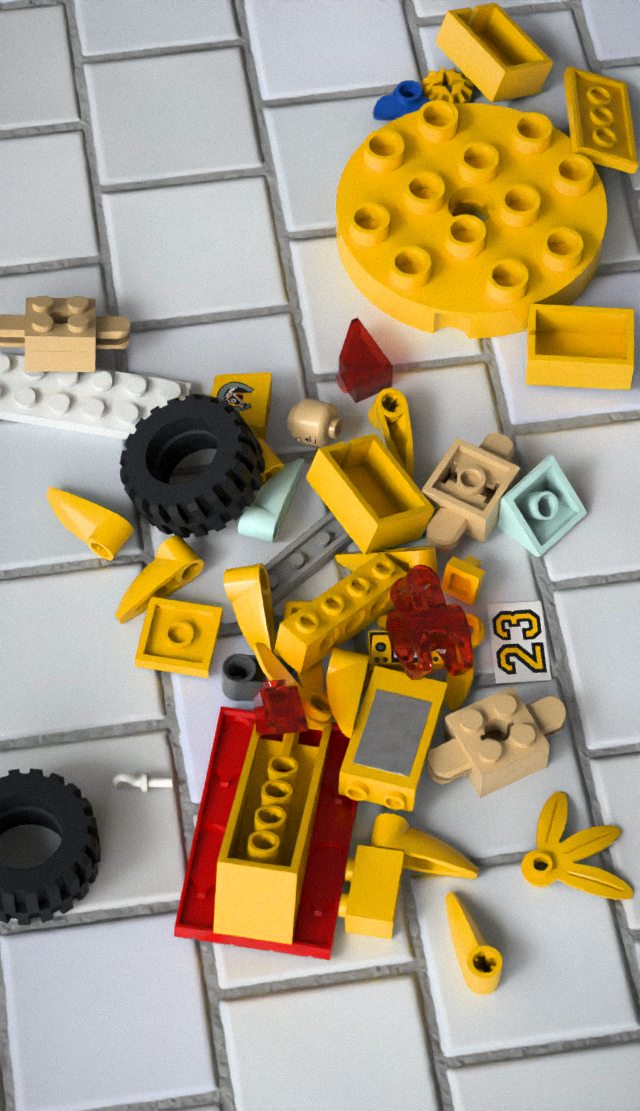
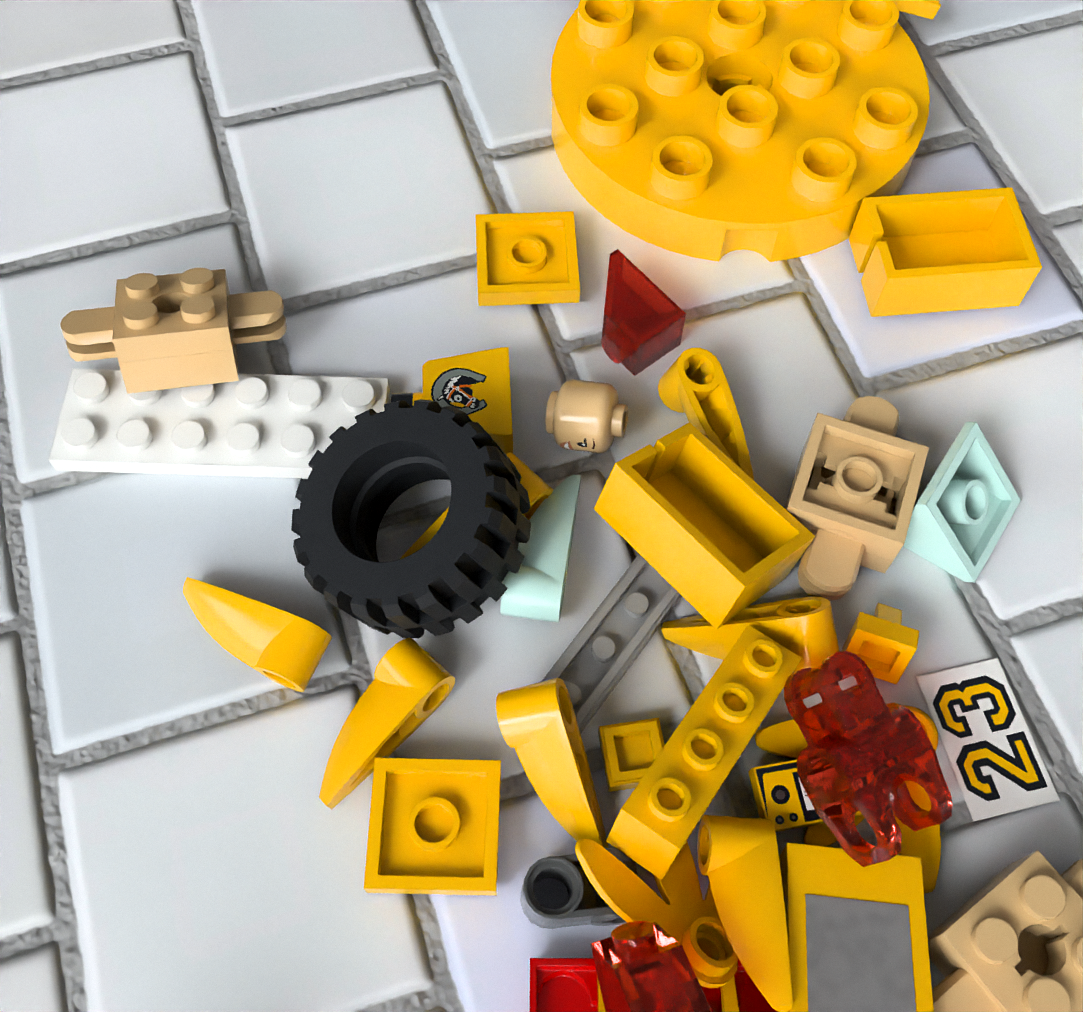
camera: 10 degrees left, 5 degrees up
(298, 315) = (527, 258): none -> yellow plate

